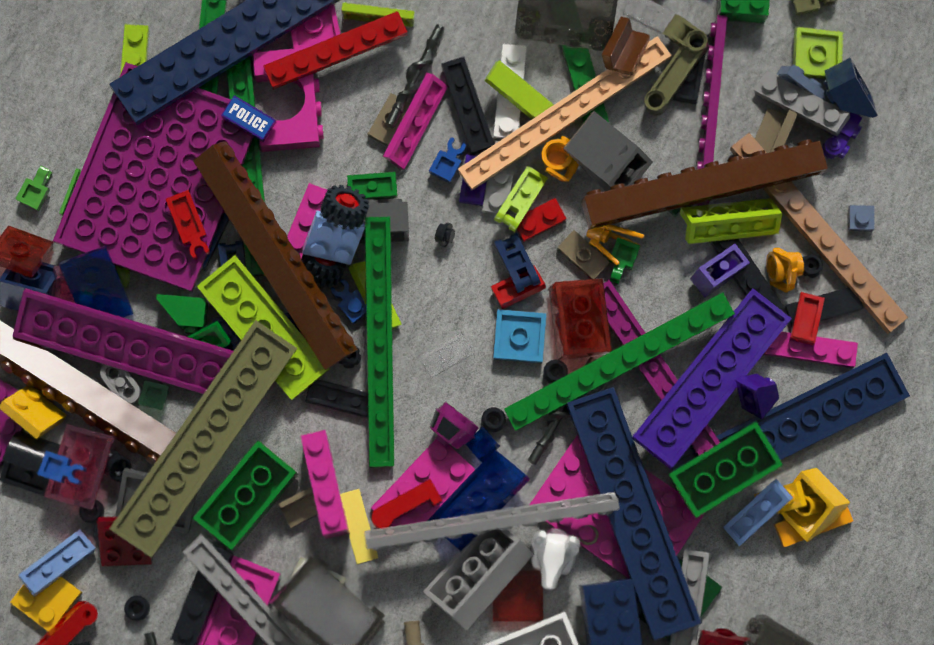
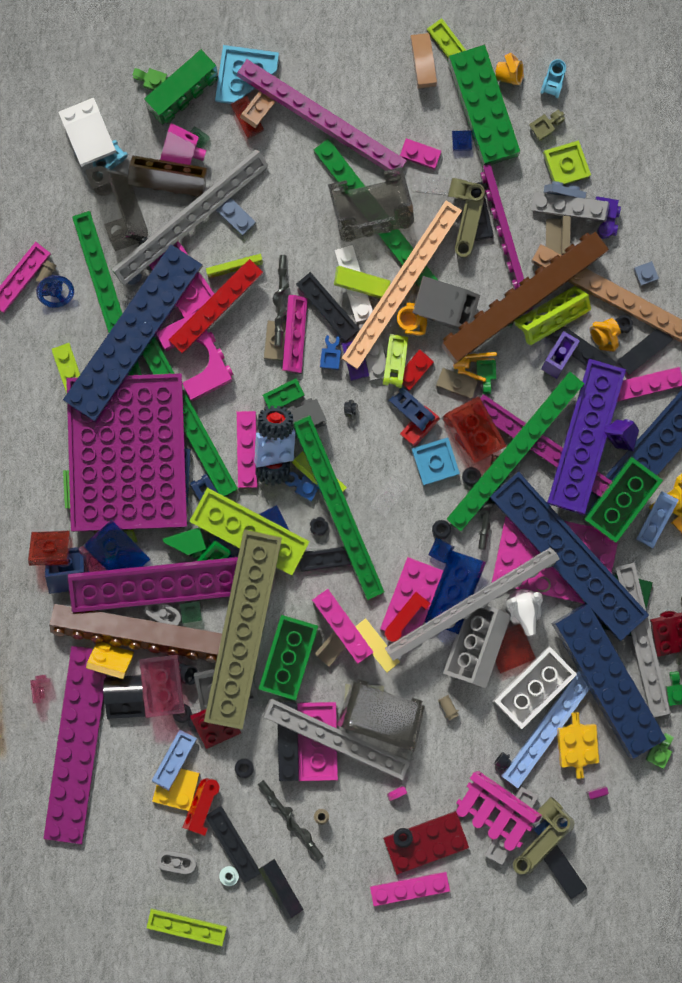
camera: 20 degrees left, 5 degrees up
(33, 191) = (39, 500): bright green plate -> none
(58, 468) = (147, 693): blue plate -> none
(187, 221) = (163, 477): red plate -> none
(248, 118) = (174, 383): tile -> none
(275, 255) = (237, 475): reddish brown brick -> none
(452, 426) = (415, 547): magenta cone -> none
(624, 48) = (426, 219): reddish brown panel -> none
(807, 318) = (636, 364): red tile -> none
(848, 89) = (601, 183): dark blue slope -> none

